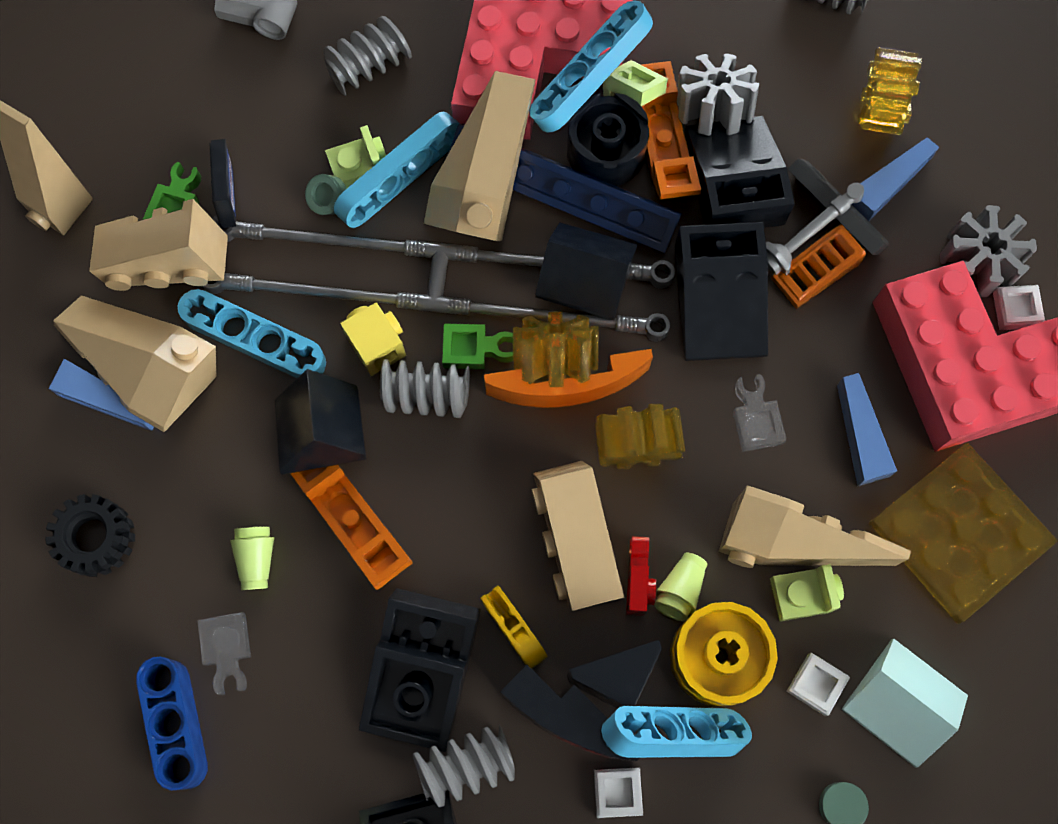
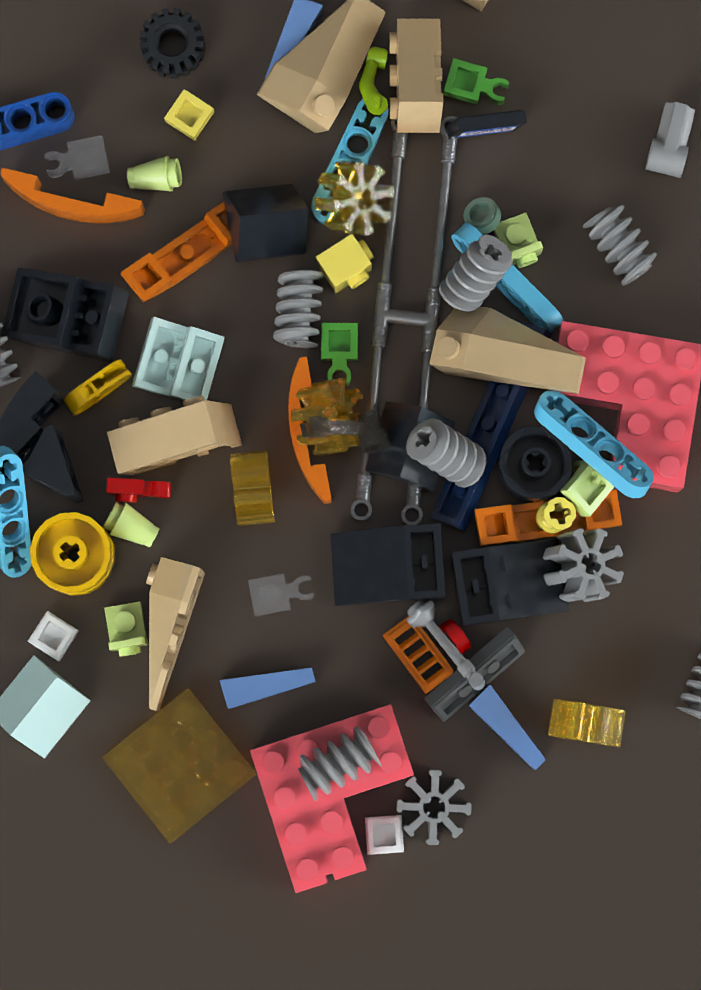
camera: 90 degrees right, 10 degrees up
(181, 515) = (189, 114): none -> light yellow plate
(185, 298) = (374, 101): none -> lime piece
(255, 717) = (115, 207): none -> orange slope
(297, 320) = (354, 197): none -> clear yellow gear
(396, 185) = (476, 273): none -> light grey piece
(482, 532) = (177, 360): none -> light aqua slope
(571, 305) = (367, 428): none -> clear smoke brick
(599, 217) = (446, 452): none -> light grey piece
(659, 119) = (556, 504): none -> light yellow bush
(794, 225) = (455, 635): none -> red tile
(968, 329) = (337, 763): none -> light grey piece

